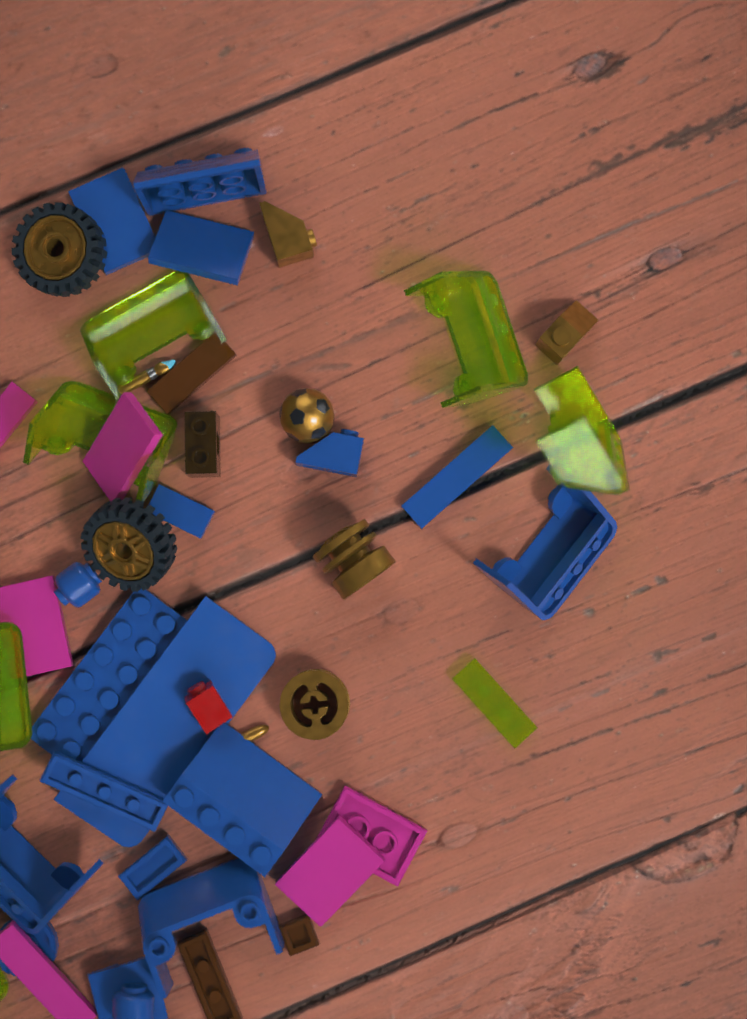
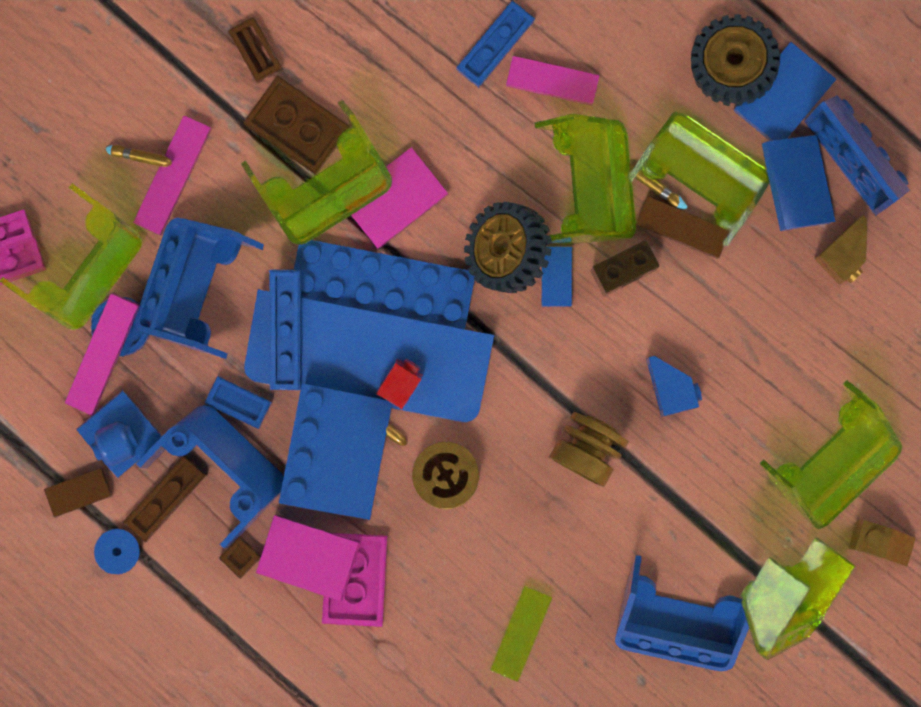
camera: 65 degrees right, 0 degrees up
(77, 584) = (450, 219): blue head -> none
(122, 447) = (589, 200): dark pink tile -> none
(306, 415) = (694, 347): pearl gold piece -> none
(457, 477) = (704, 506): blue tile -> none

